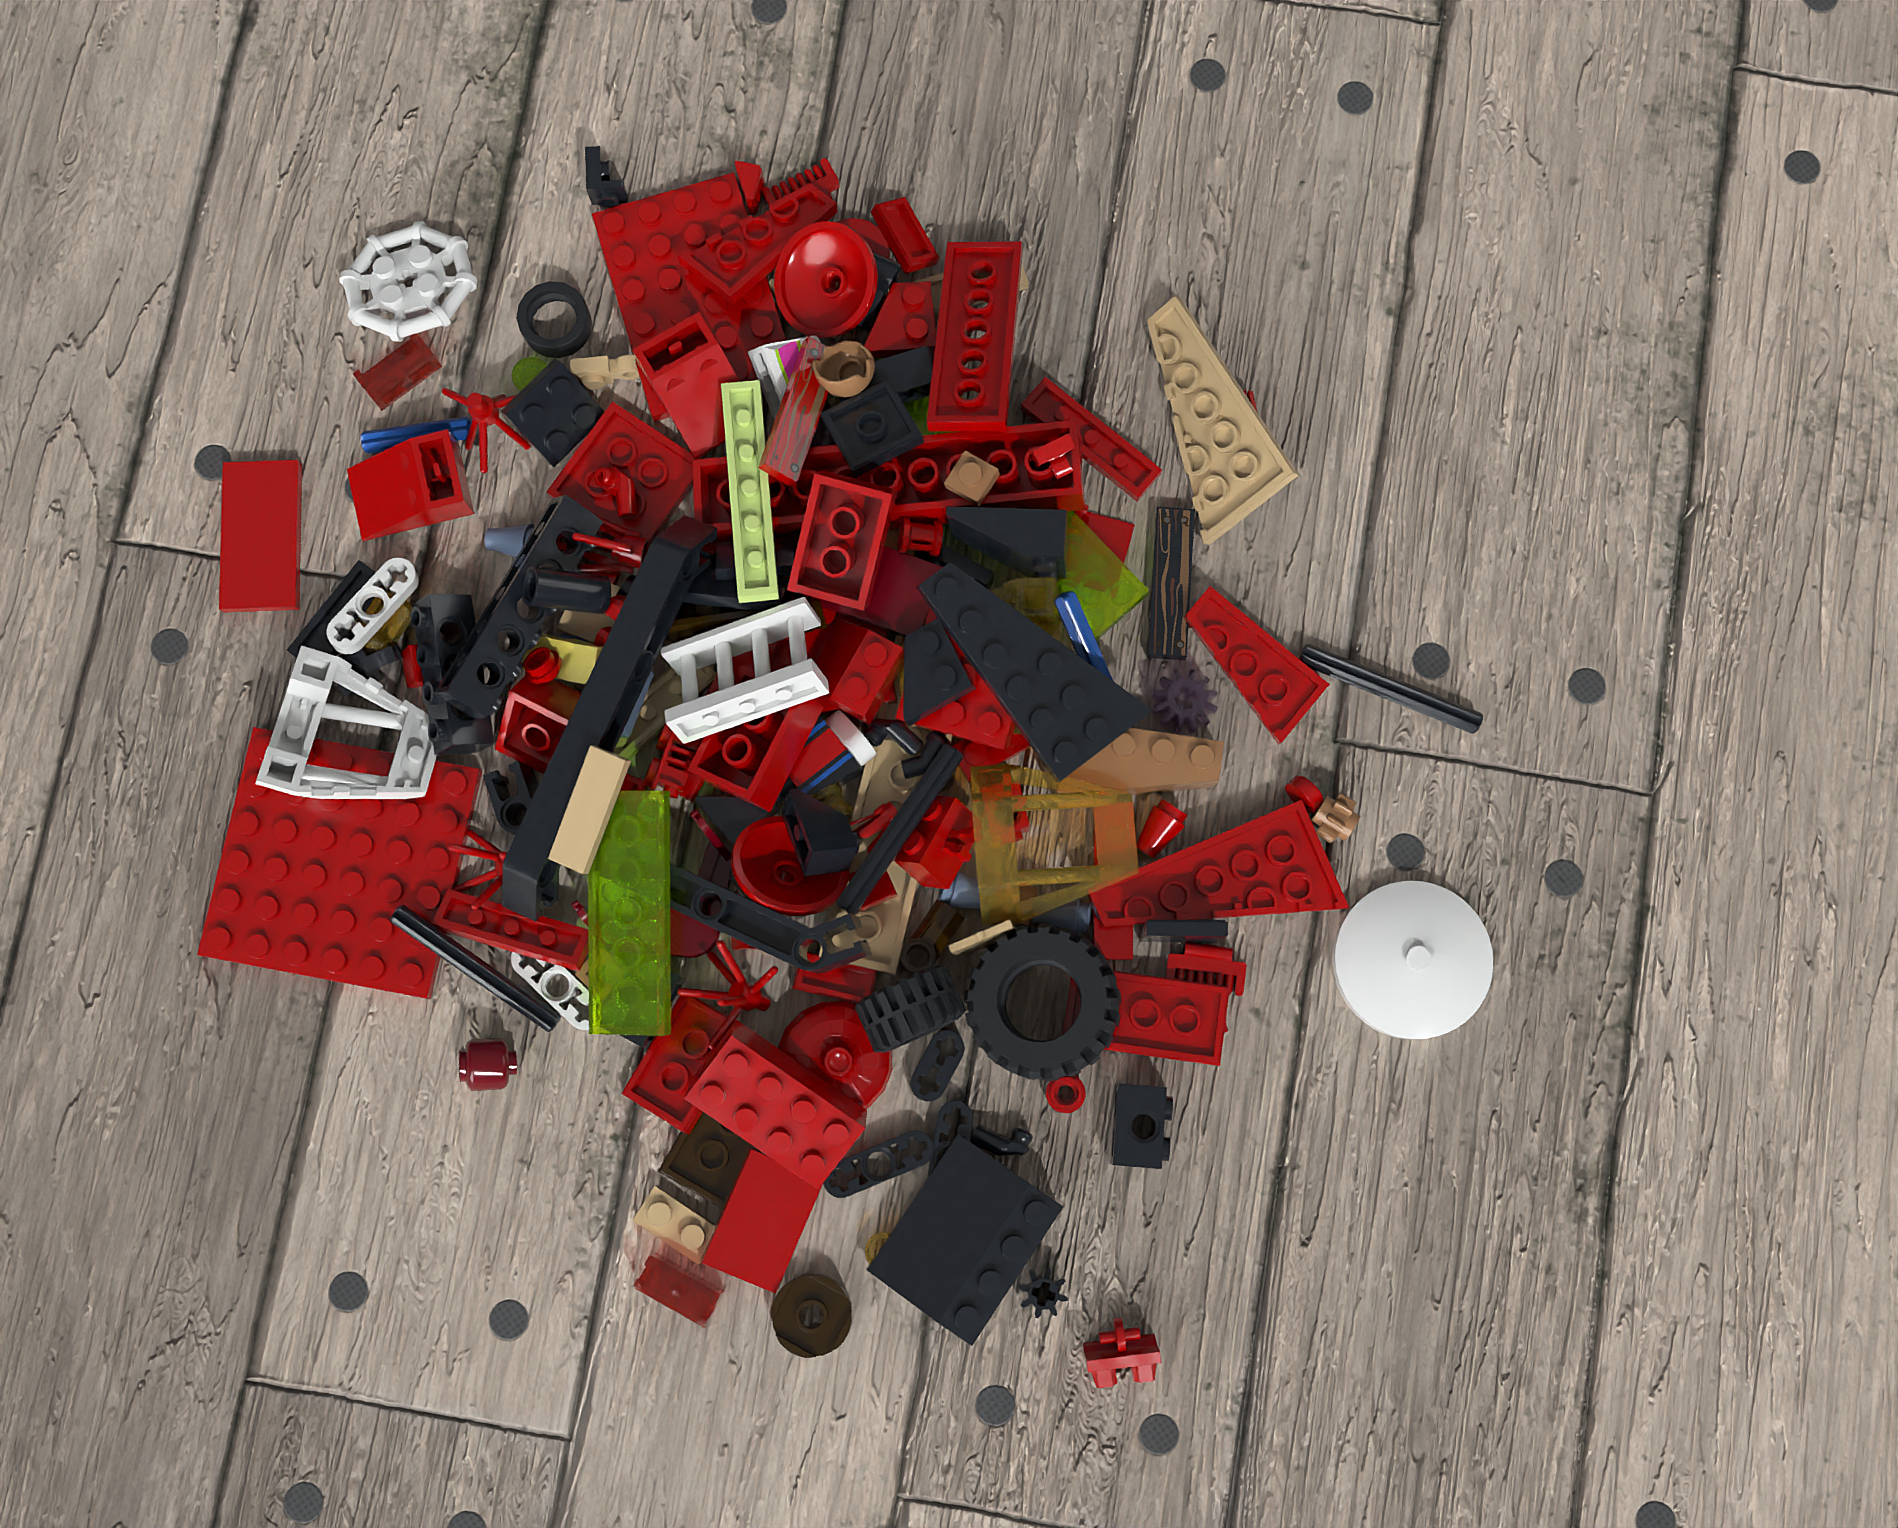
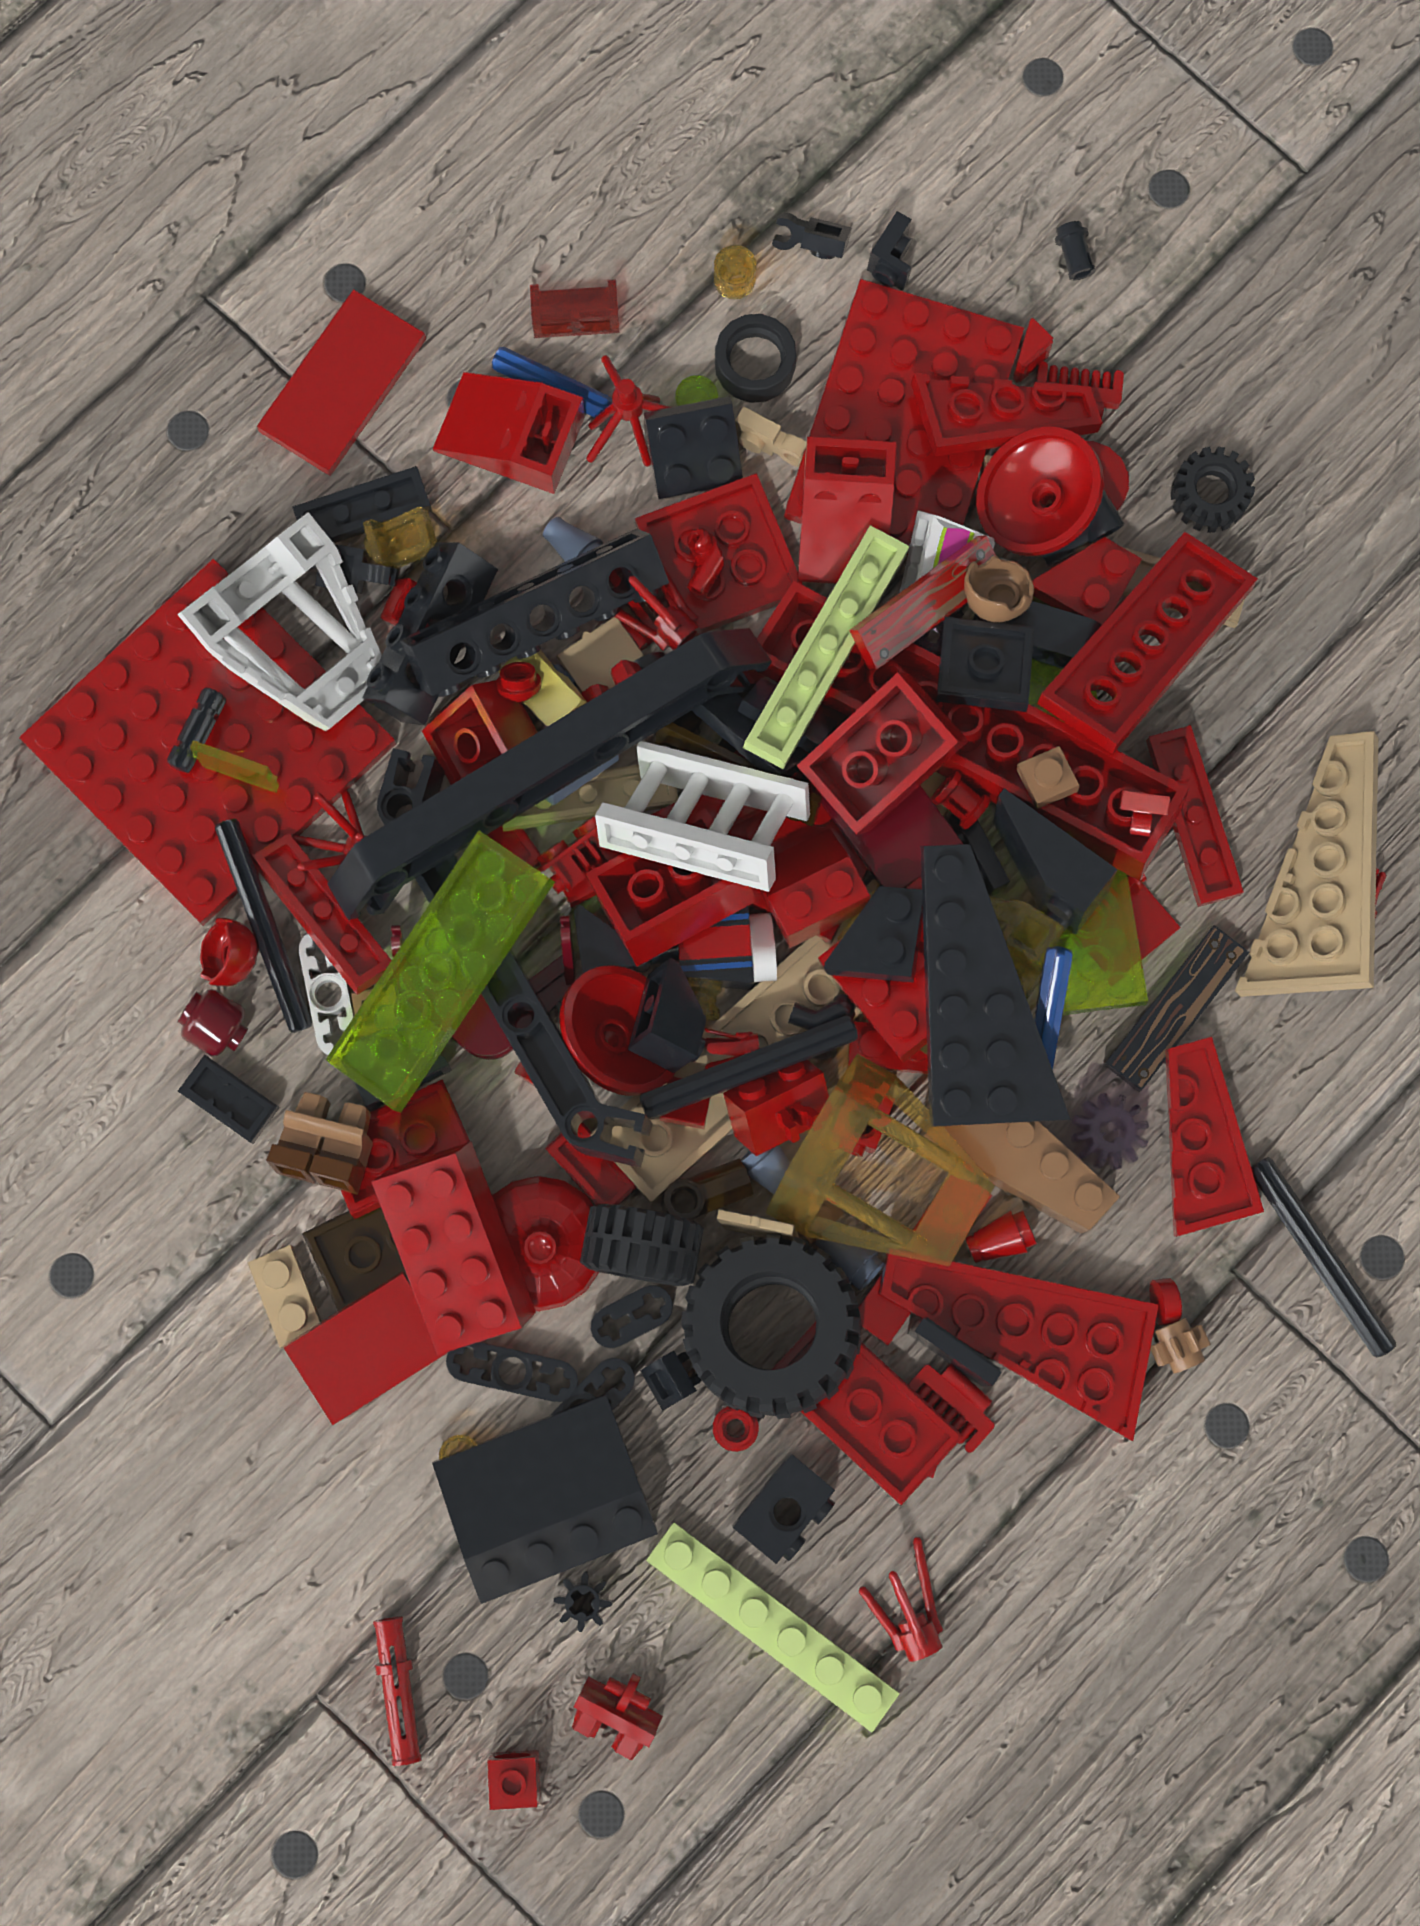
camera: 30 degrees right, 0 degrees up
(327, 860) = (196, 728): none -> black axle
(345, 618) = (365, 516): white beam -> none
(374, 866) = (234, 766): none -> clear neon green piece
(415, 306) = (642, 210): white plate -> none
(463, 1006) = (228, 953): none -> red hair
(488, 263) = (731, 262): none -> clear yellow wheel
(536, 1111) = (228, 1099): none -> black plate
(540, 202) = (821, 237): none -> black plate
(566, 590) = (589, 626): black pin -> none
(589, 809) = (468, 848): tan tile -> none
(631, 1100) = (323, 1149): none -> hips
(679, 1289) = (246, 1357): clear red hinge -> none
(726, 88) = (1076, 253): none -> black pin
(741, 993) = (492, 1120): red plant -> none
(789, 1321) = (327, 1460): dark brown plate -> none
(894, 731) = (806, 967): black arm -> none
(905, 235) = (1149, 497): red tile -> none
(940, 180) = (1230, 472): none -> black tyre
(988, 1487) = (403, 1747): none -> red pin
(995, 1091) = (669, 1379): none -> black tile
(1001, 1145) = (639, 1433): black arm -> none
(1081, 1454) = (514, 1780): none -> red brick
(1188, 1215) = (773, 1627): none -> yellowish green plate
(1293, 1147) = (917, 1634): none -> red plant
(1412, 960) = (1161, 1535): white dish -> none

